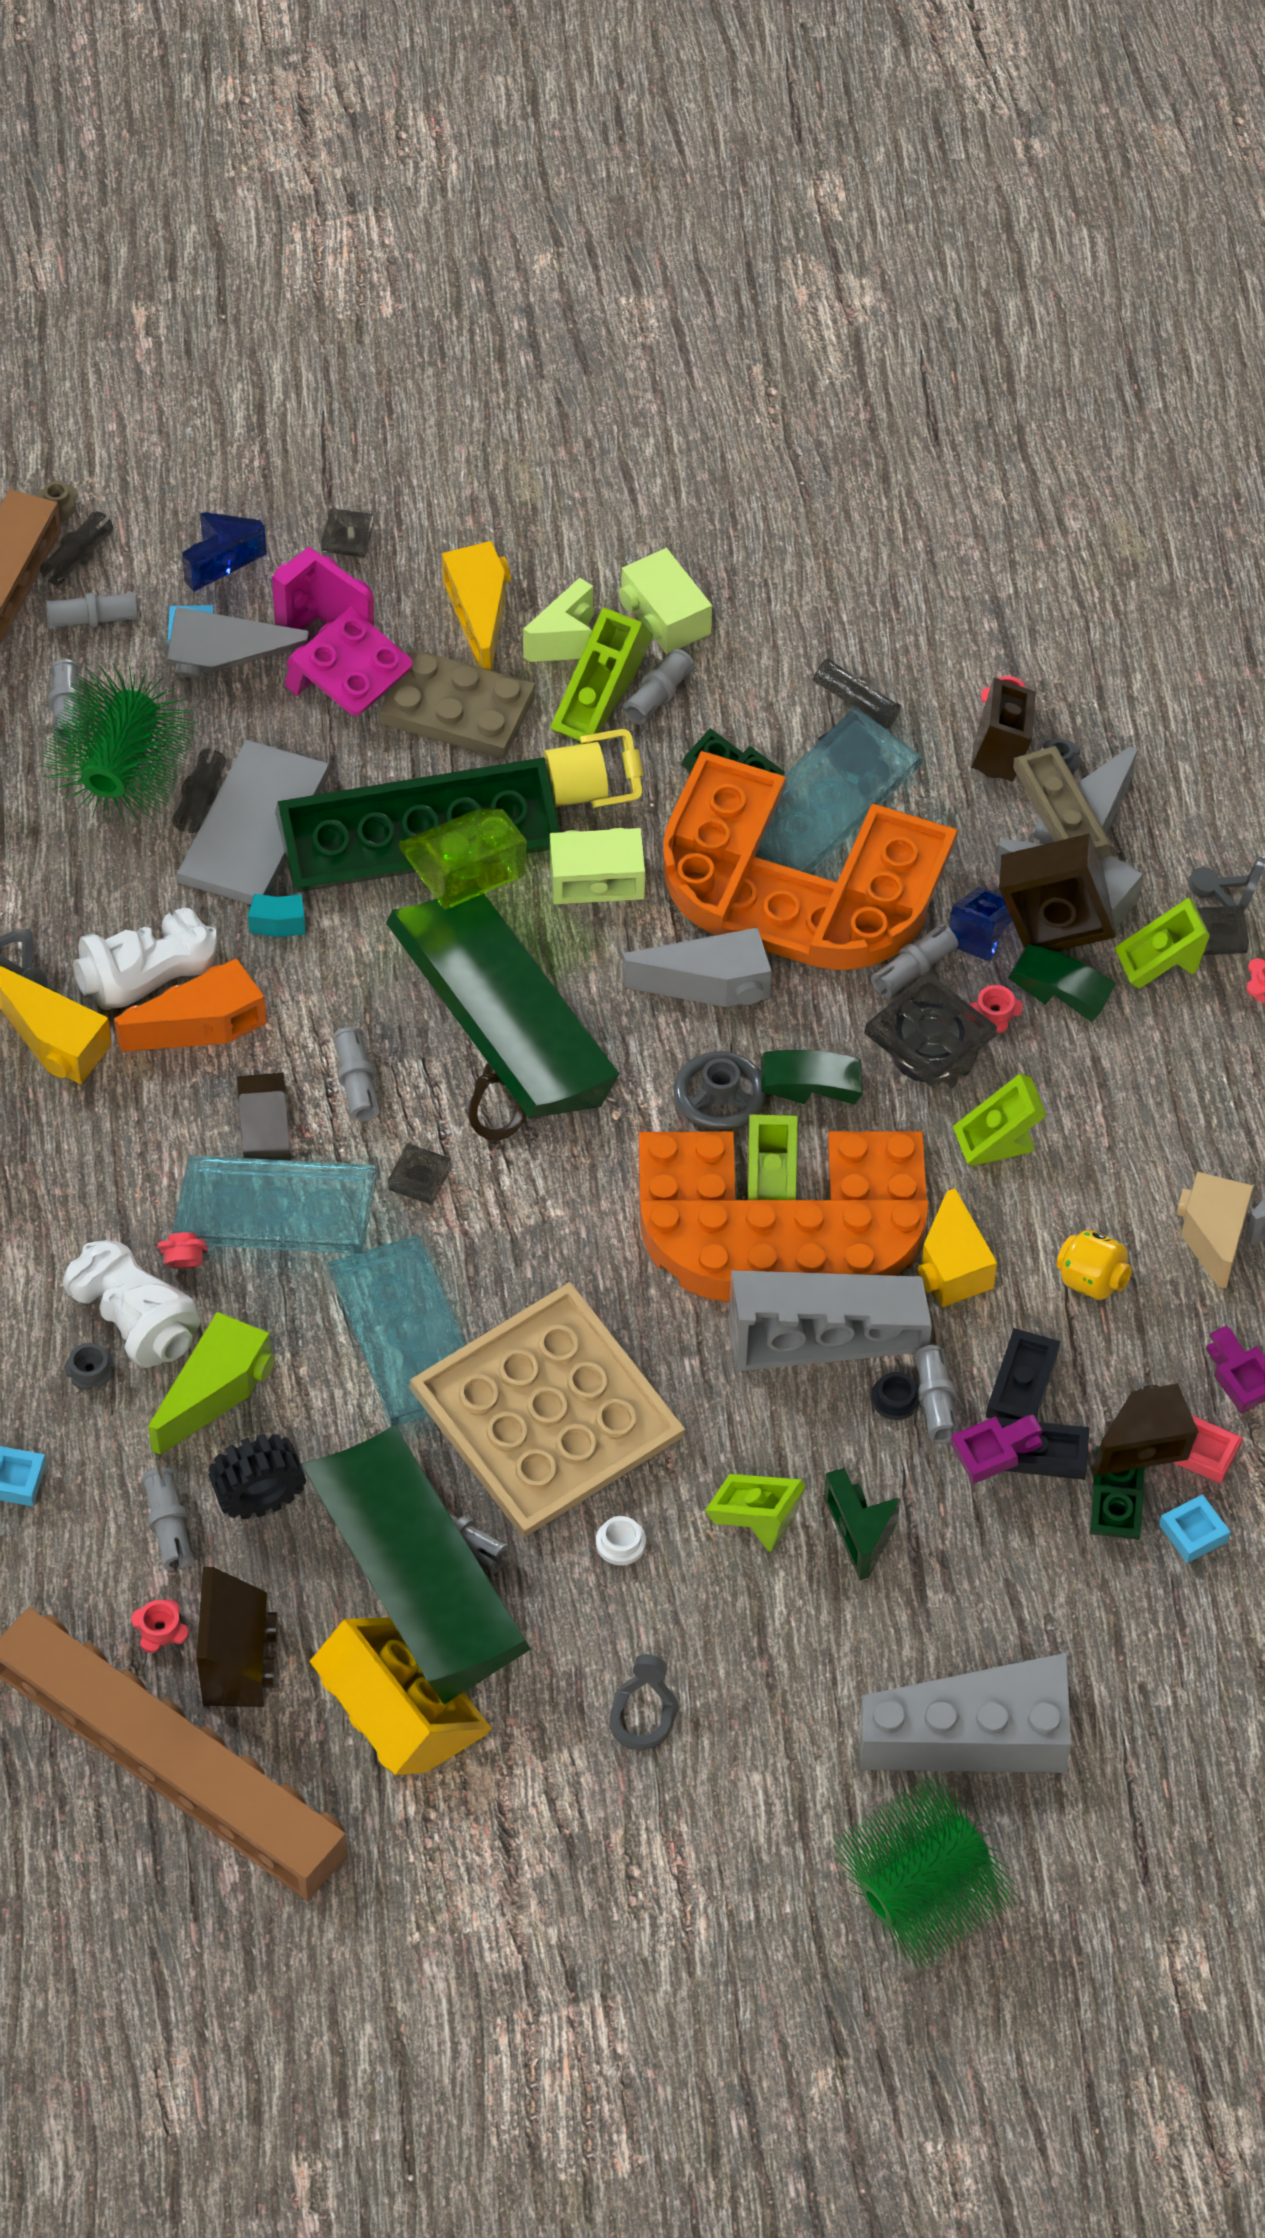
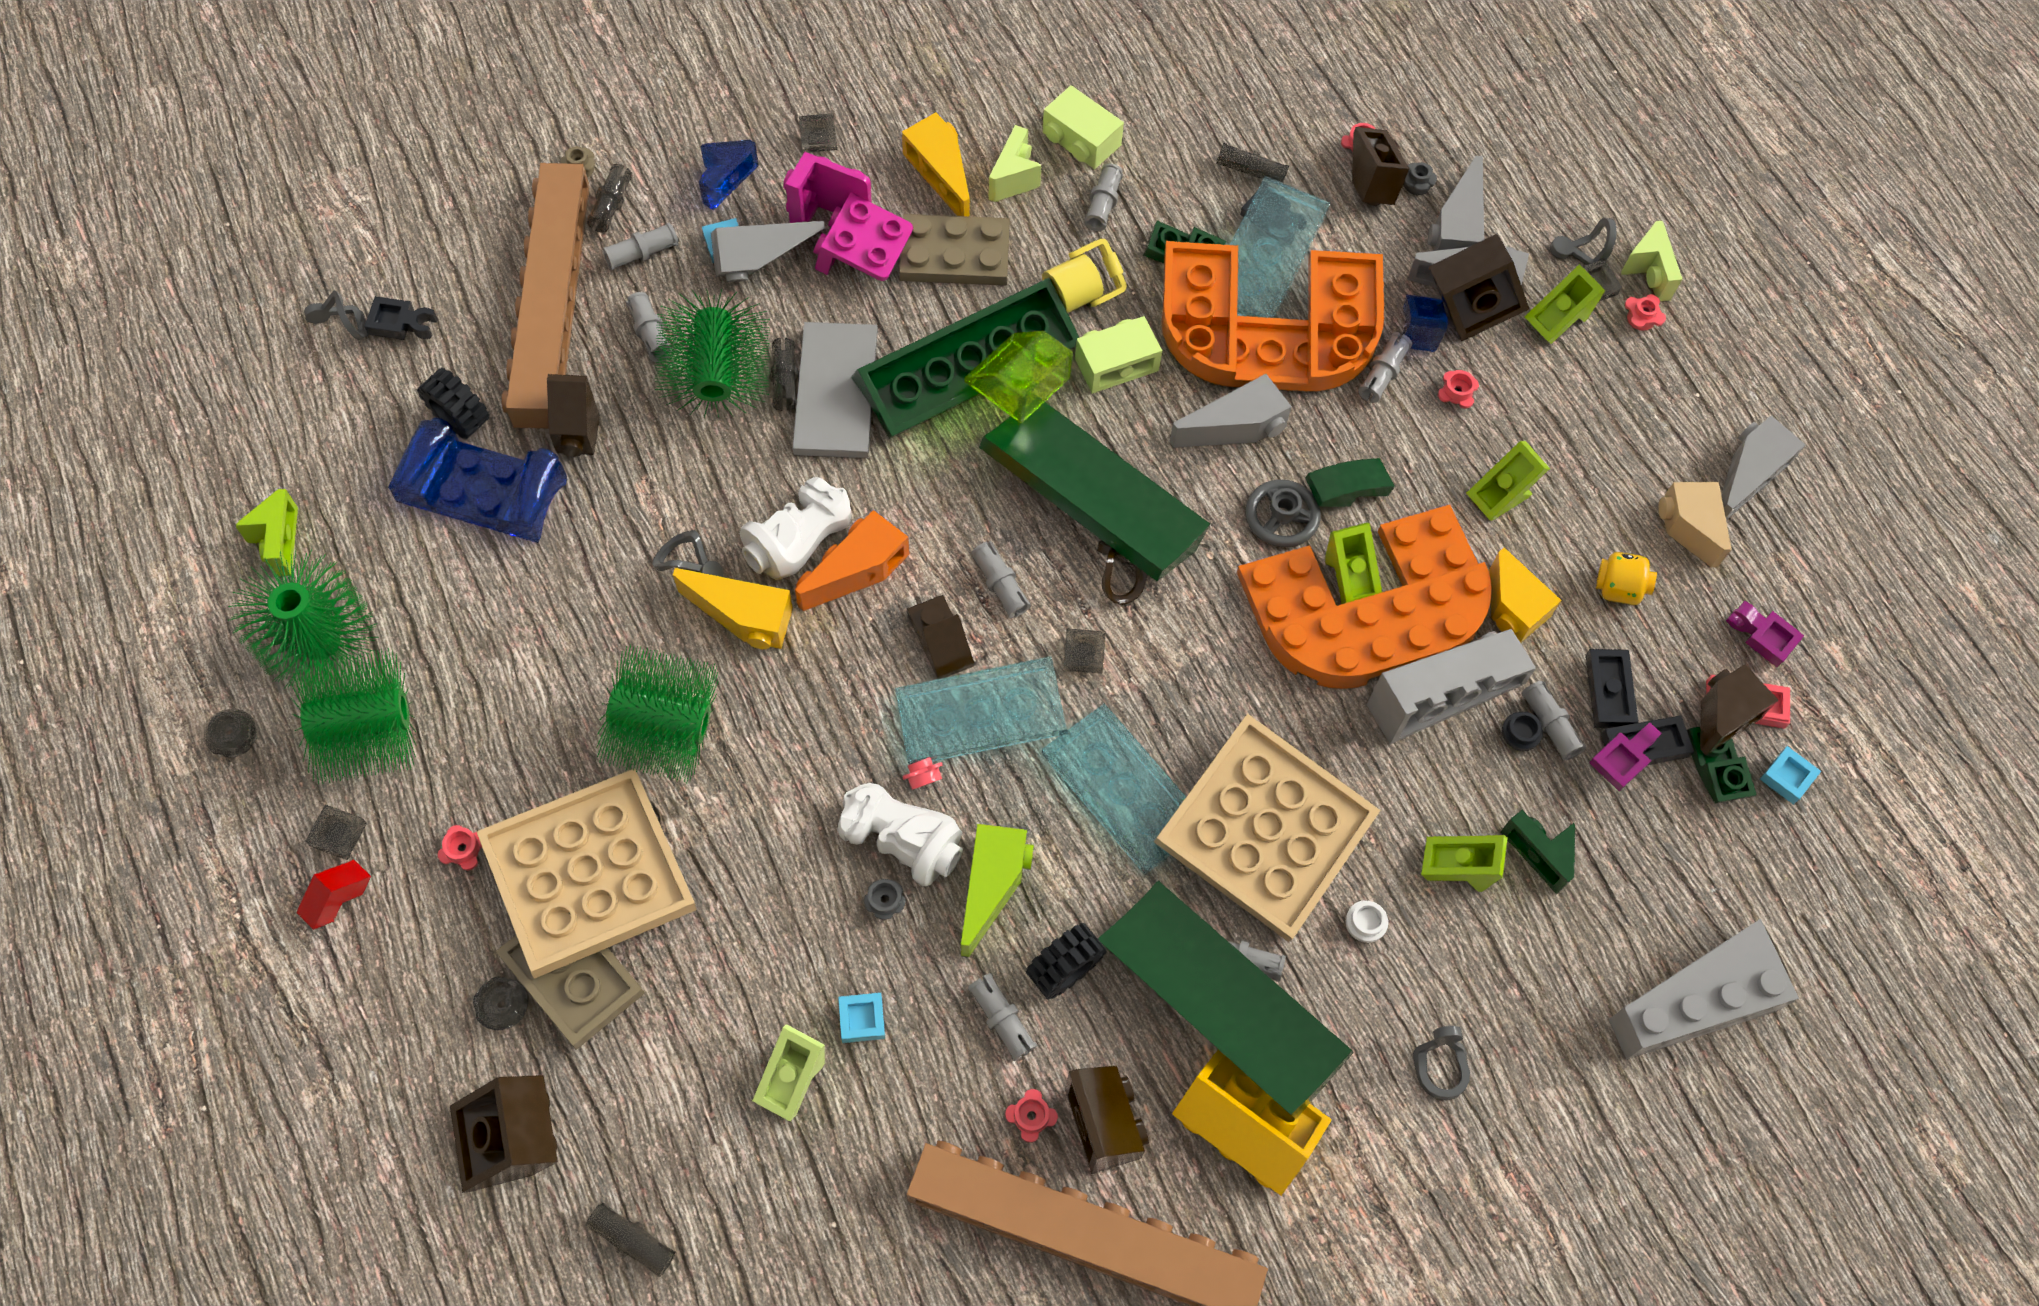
camera: 20 degrees left, 10 degrees up
(276, 915) = (886, 462): teal piece -> none
(602, 674) = (1059, 200): lime slope -> none
(925, 1871) = (1744, 1152): green piece -> none
(928, 1034) = (1430, 423): clear smoke piece -> none
(1051, 974) = (1493, 350): dark green slope -> none
(1059, 798) = (1446, 211): dark tan tile -> none

